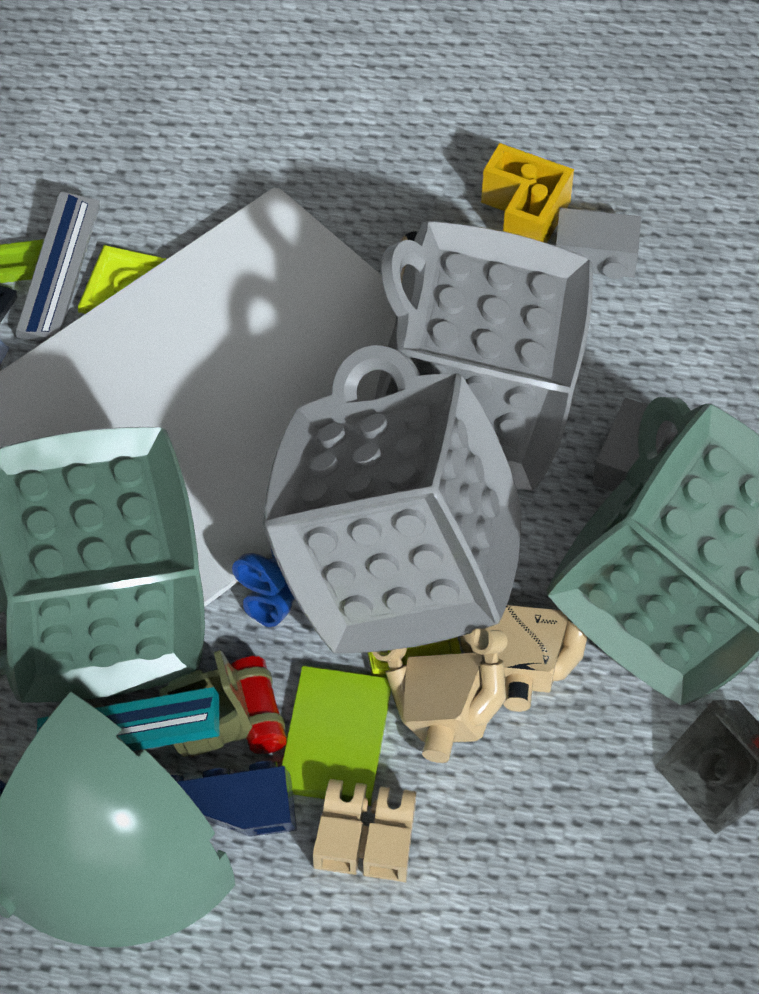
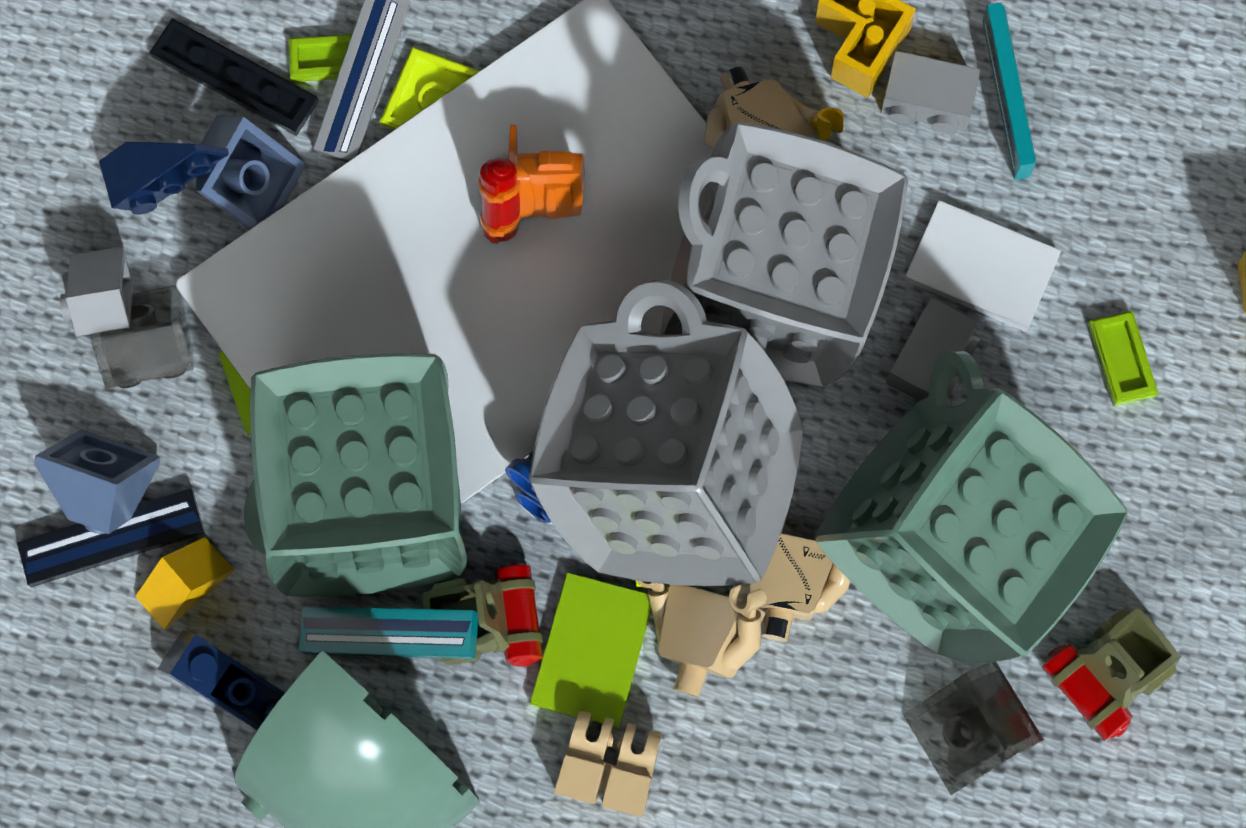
camera: 10 degrees right, 20 degrees up
(230, 332) = (527, 187): none -> orange piece
(246, 801) = (491, 725): dark blue slope -> none
(654, 368) = (982, 265): none -> white tile
(670, 238) = (1009, 91): none -> teal tile

